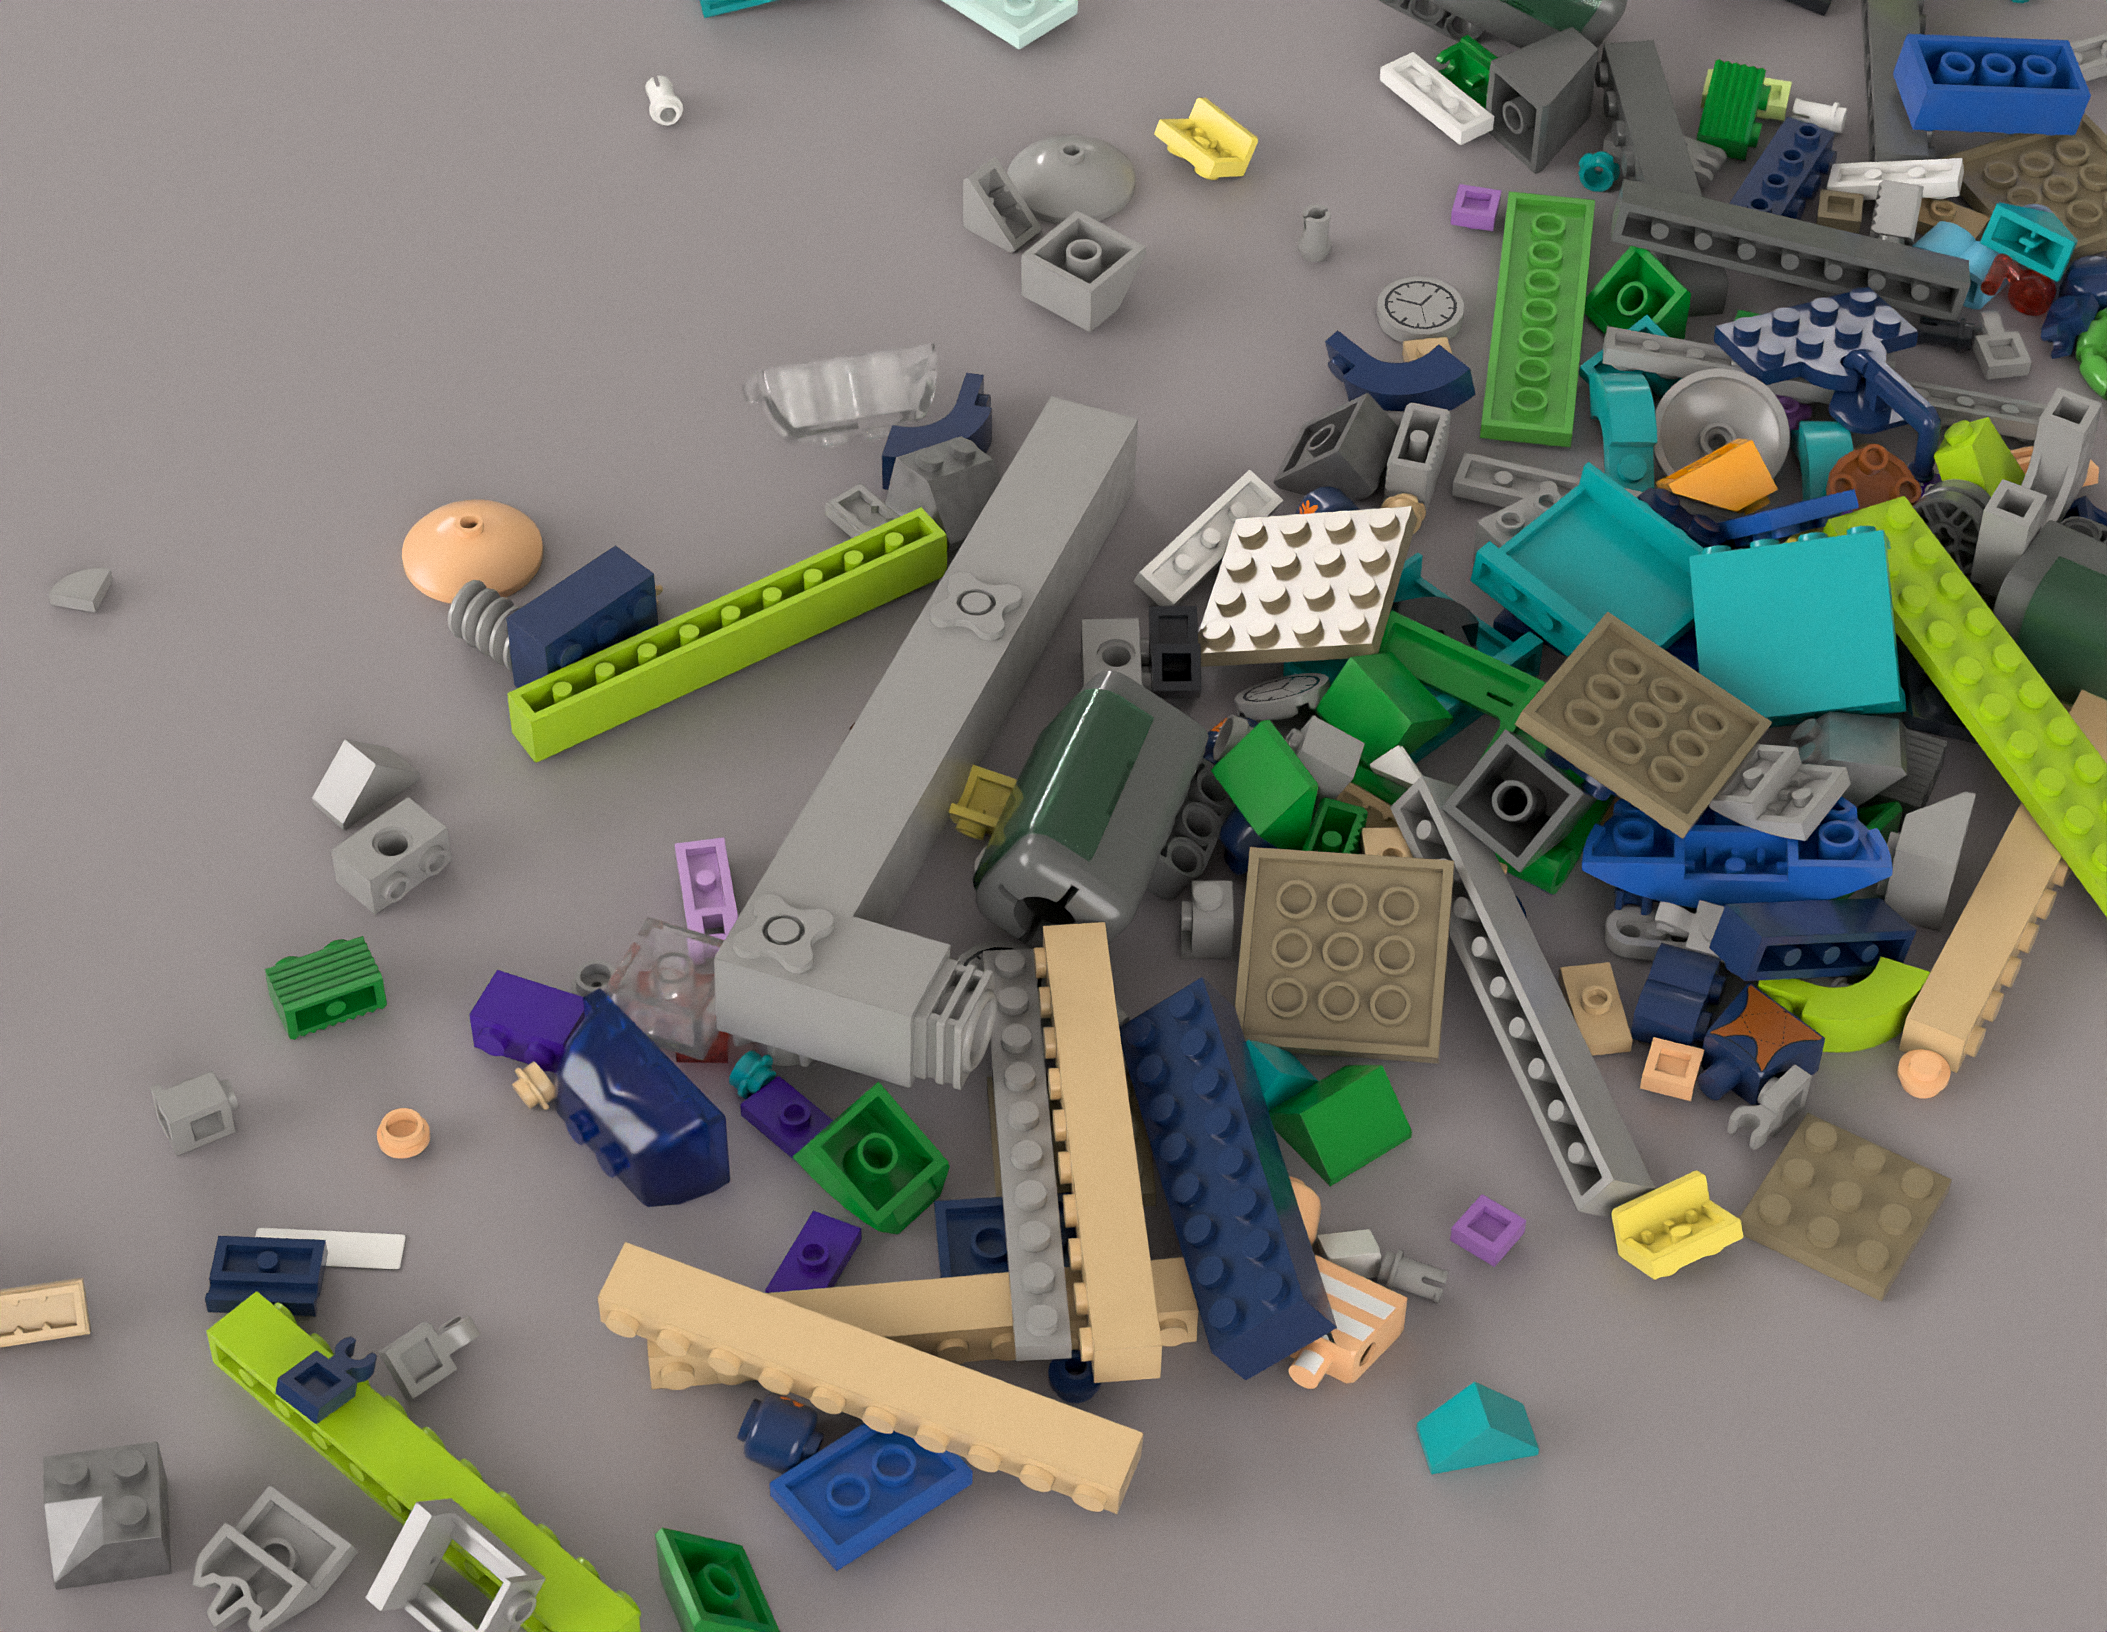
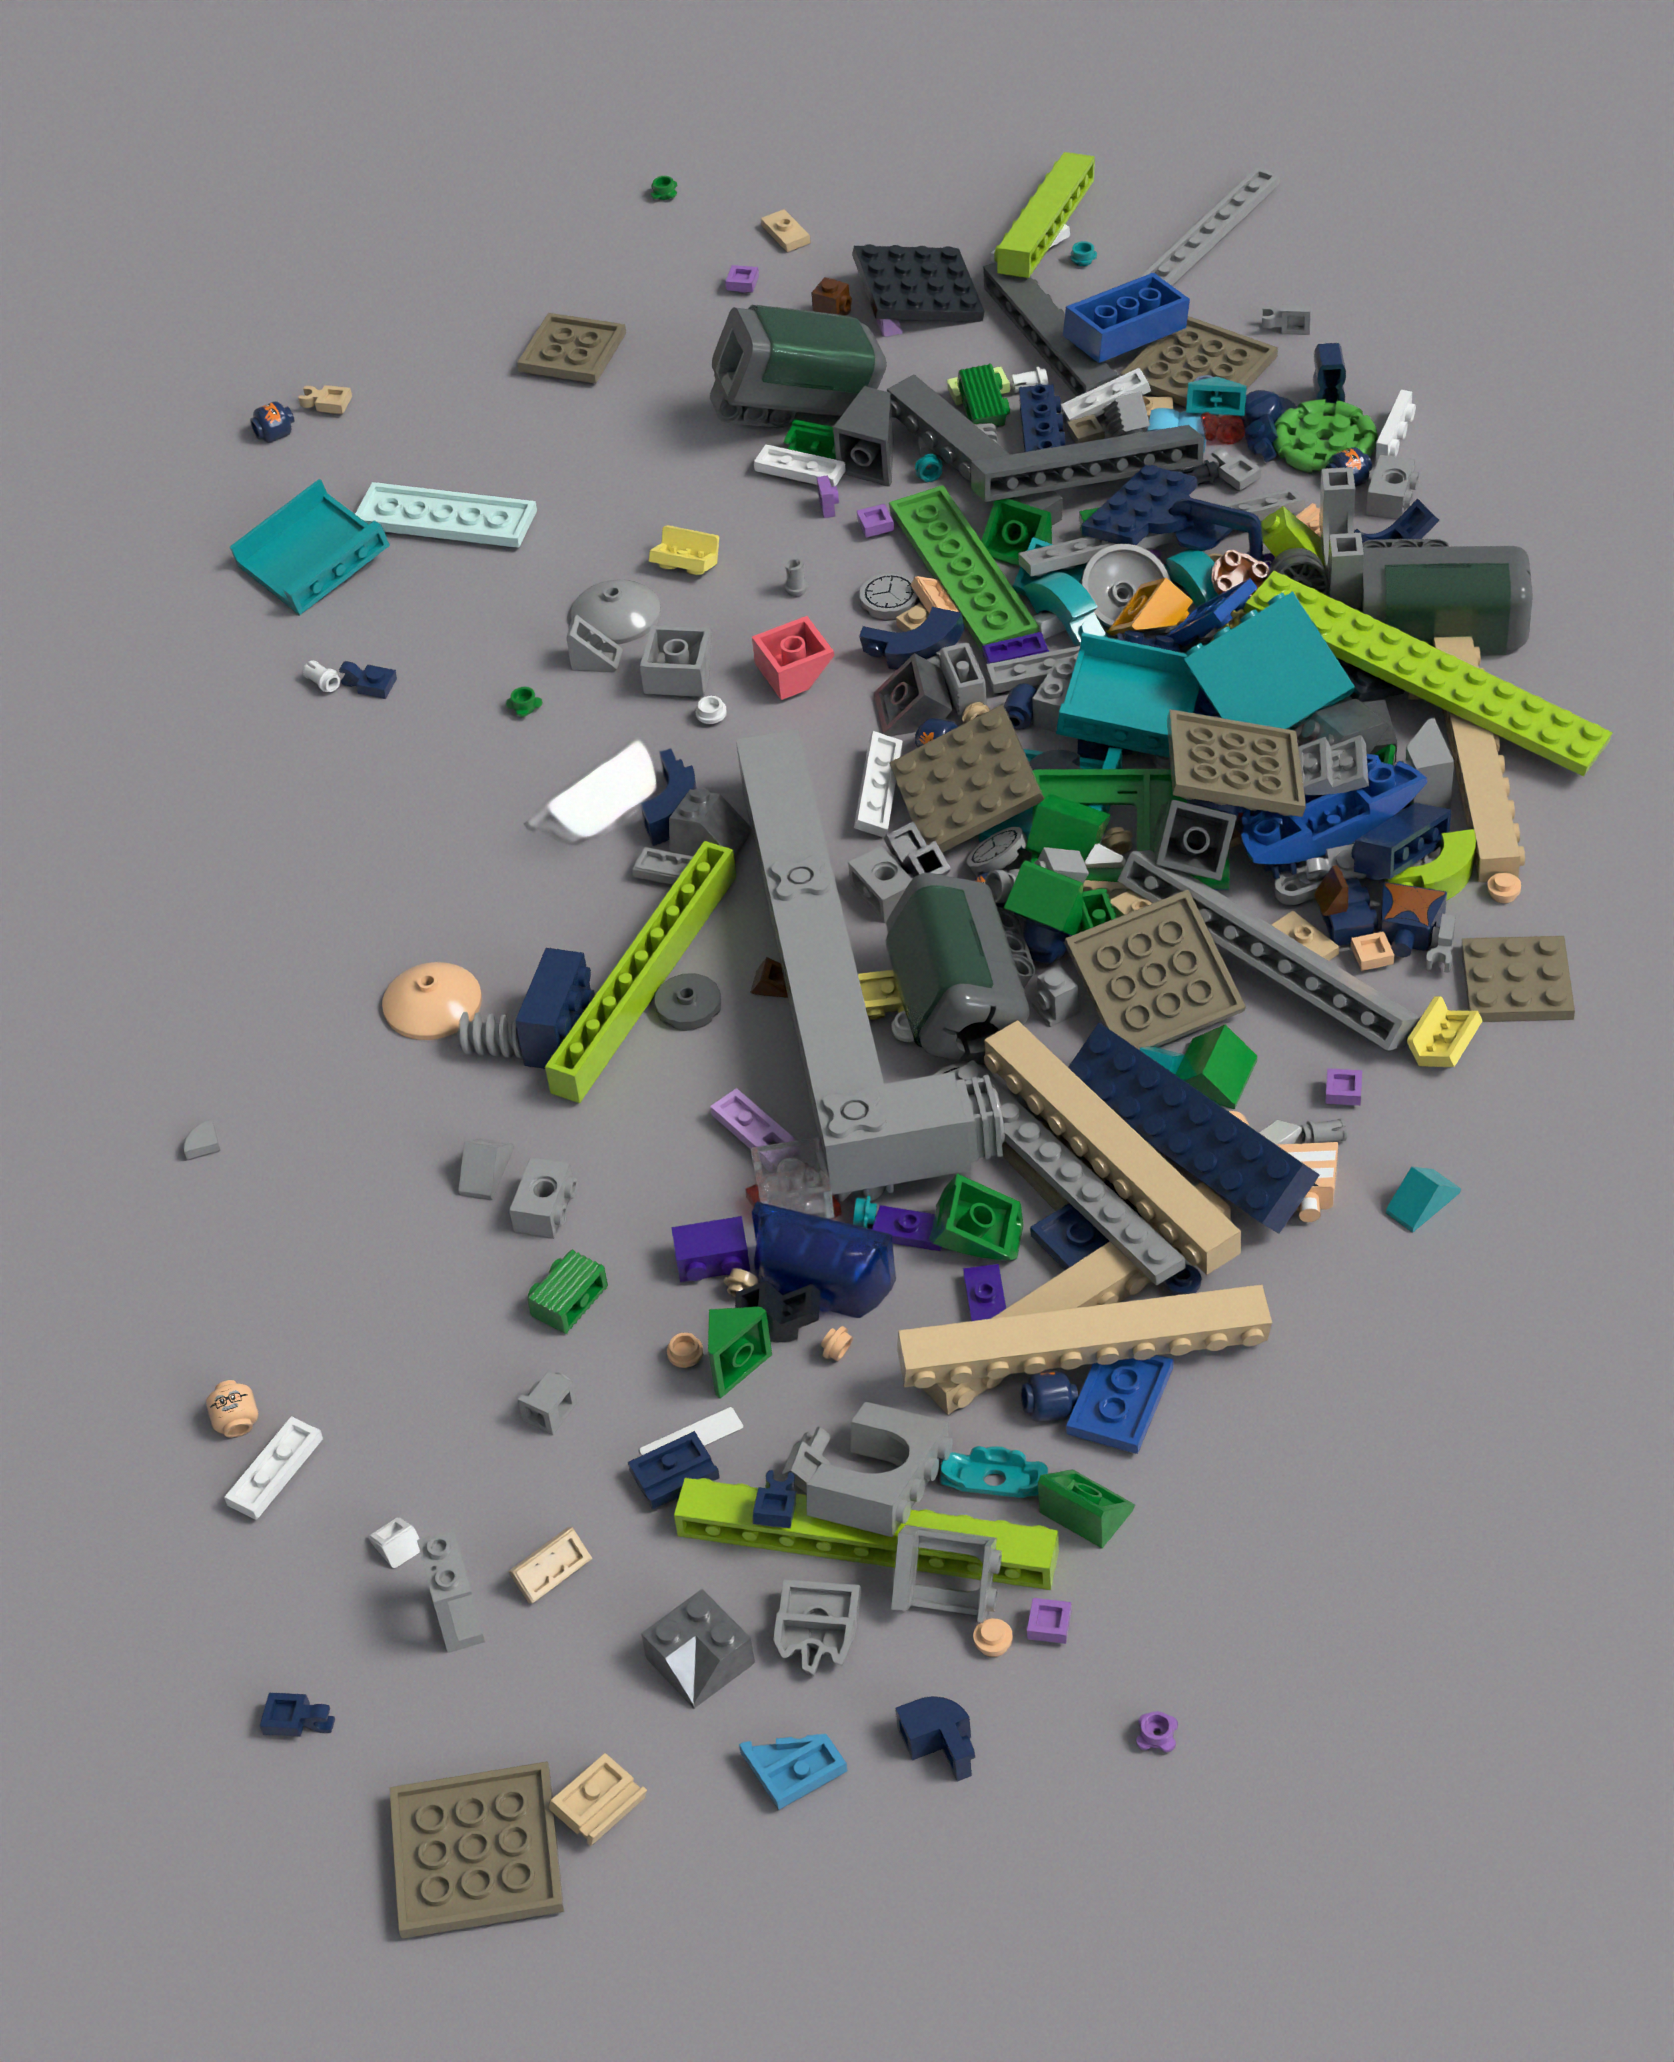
camera: 25 degrees left, 0 degrees up
(446, 1159) = (736, 1345): none -> green slope
(450, 1451) = (881, 1499): none -> light grey arch
(533, 1144) = (783, 1312): none -> black brick
(583, 1223) = (836, 1343): none -> light nougat plate
(591, 976) = (727, 1206): light grey plate -> none
(608, 1475) = (969, 1471): none -> teal piece
(716, 134) = (372, 681): none -> dark blue plate
(762, 701) = (687, 1001): none -> dark grey plate
(869, 238) = (523, 701): none -> green plate
(1082, 352) = (710, 710): none -> white plate
(1225, 328) = (791, 656): none -> coral slope
(1438, 150) = (827, 496): none -> medium lavender plate
(1452, 759) = (1118, 840): none -> tan plate
(1456, 528) = (1020, 705): none -> dark blue brick
(1471, 338) = (932, 594): none -> light nougat plate
(1521, 449) = (1014, 648): none -> dark purple plate
(1587, 438) = (1049, 624): none -> white slope
(1661, 963) = (1332, 893): none -> reddish brown slope

